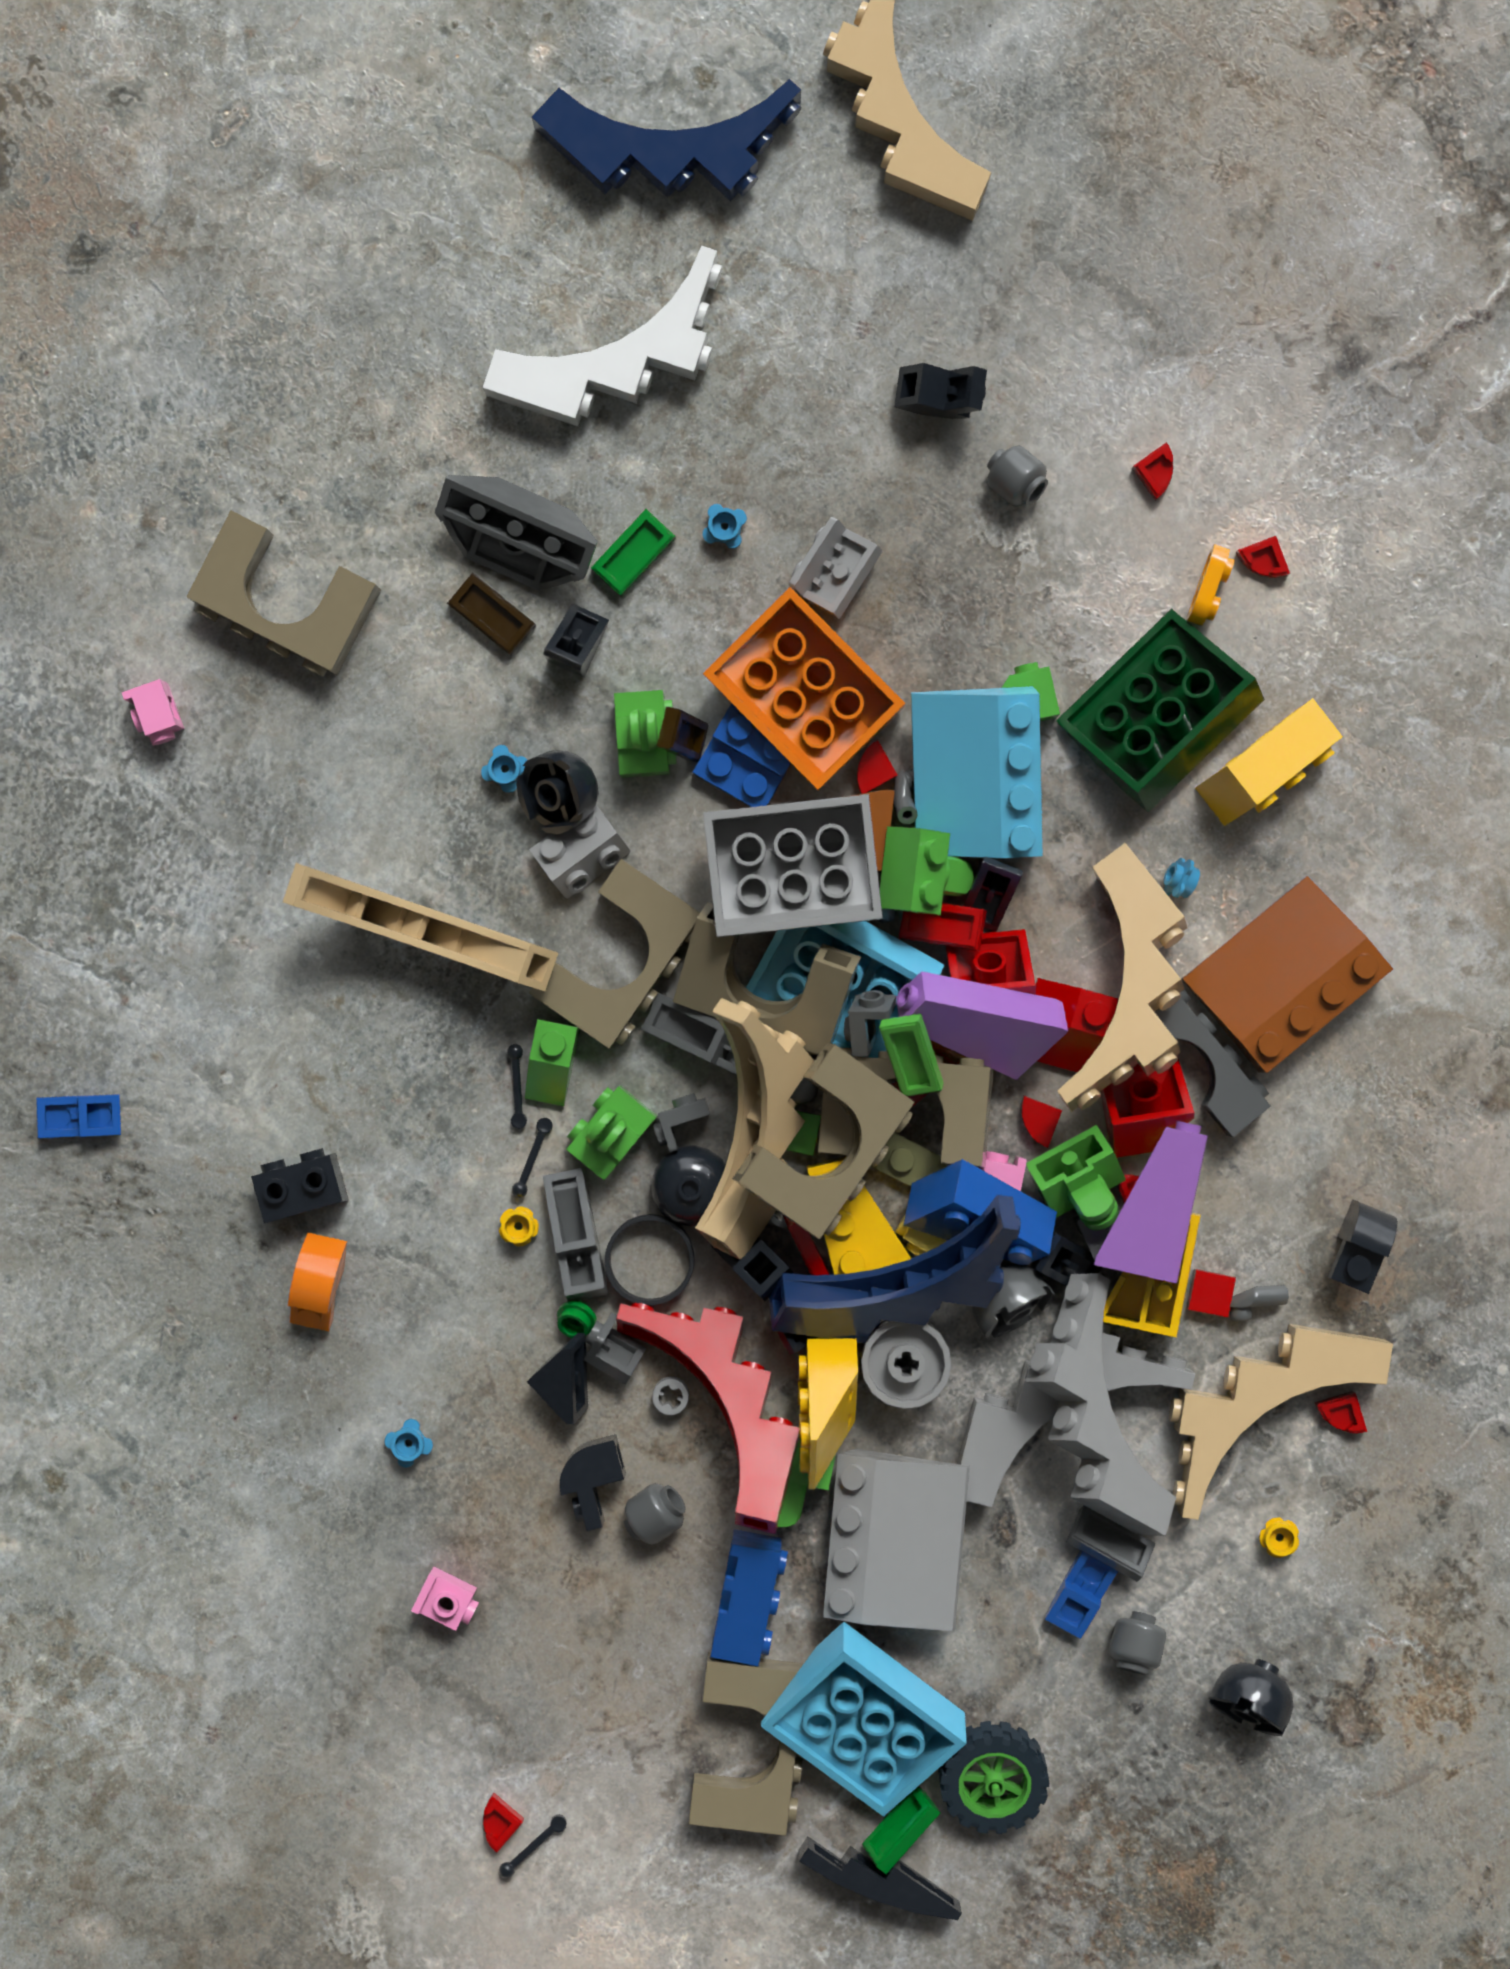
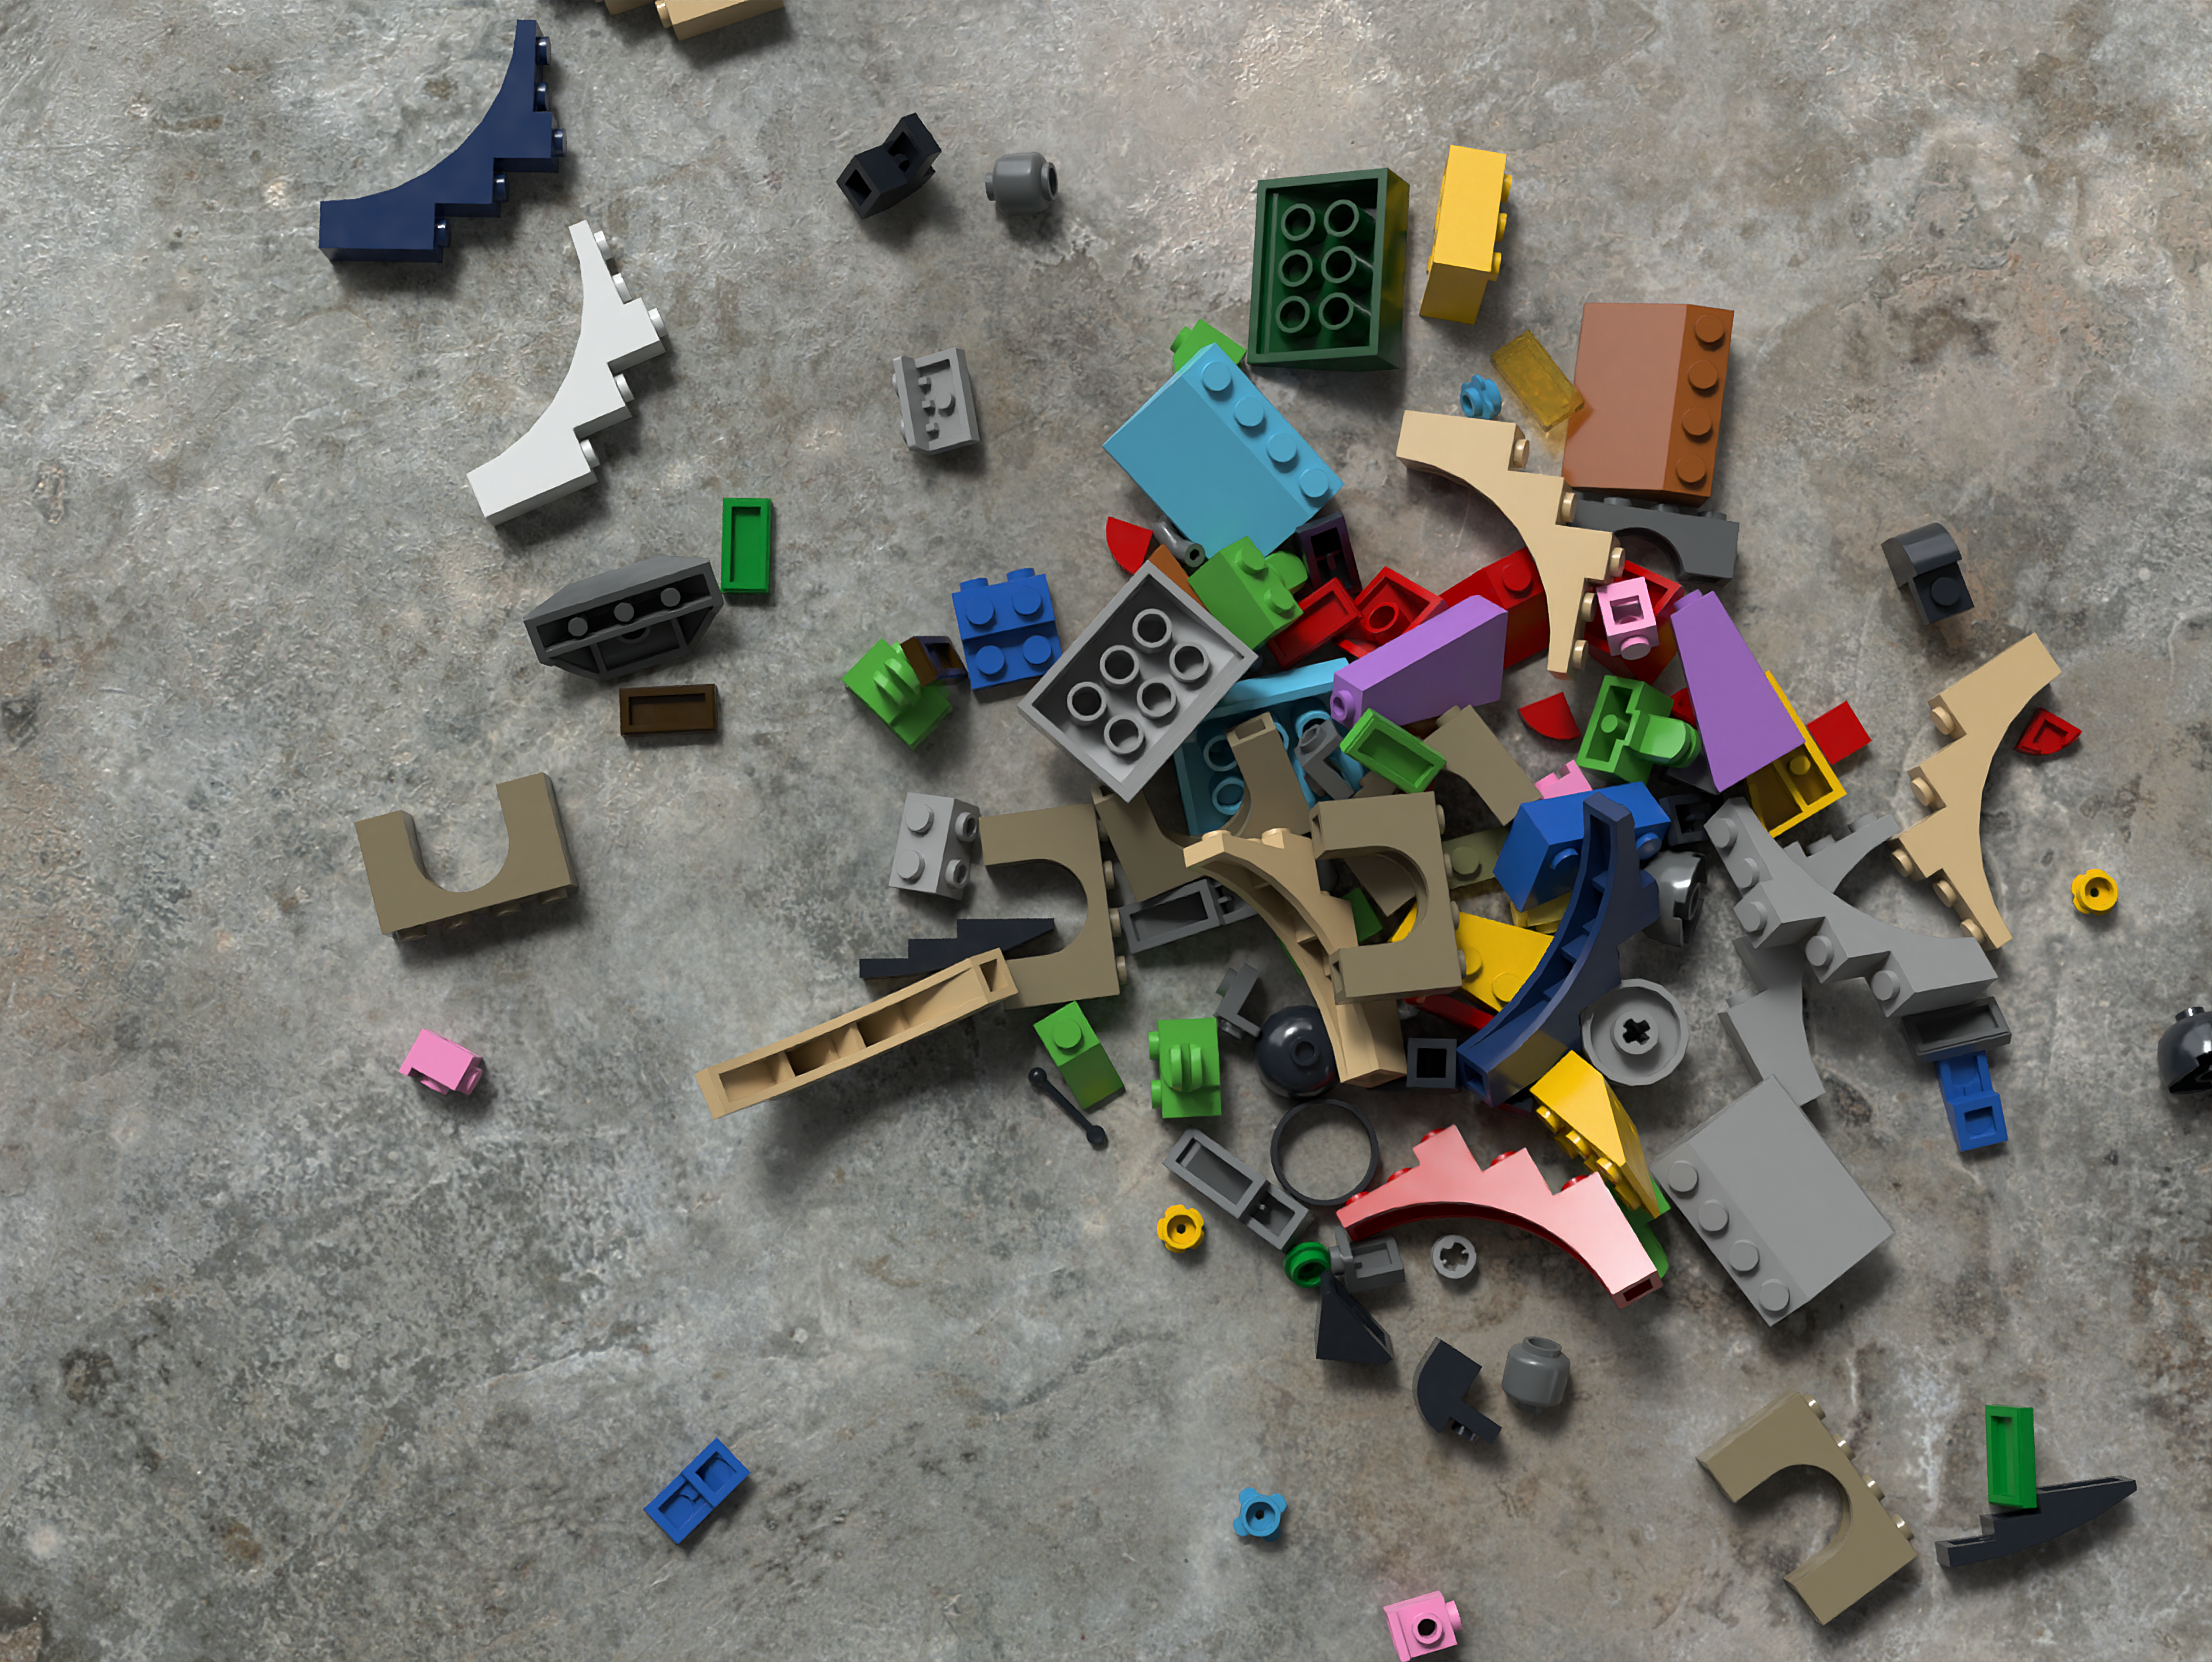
camera: 50 degrees left, 5 degrees down
(299, 1187) = (954, 1371): black brick -> none
(316, 1281) = (1047, 1442): orange brick -> none
(493, 772) = (790, 828): dark azure plate -> none
(544, 1126) = (1123, 1119): black hinge -> none
(549, 933) = (972, 939): none -> black slope
(557, 790) = (868, 809): black cylinder -> none
(576, 640) = (765, 666): black slope -> none
(720, 515) = (792, 449): dark azure plate -> none
(748, 1598) = (1687, 1373): blue wedge -> none
(804, 688) = (1005, 524): orange slope -> none
(866, 1720) = (1892, 1385): medium azure slope -> none
(996, 1812) = (2082, 1359): black wheel -> none
(1137, 1643) = (2061, 1097): dark grey head -> none
(1138, 1104) = (1628, 618): none -> bright pink brick
(1156, 470) = (1137, 76): red tile -> none
(1216, 569) = (1266, 113): light orange plate -> none
(1229, 899) = (1537, 380): none -> clear yellow tile
(1256, 1297) = (1879, 701): dark grey arm -> none
(1264, 558) = (1299, 68): red tile -> none

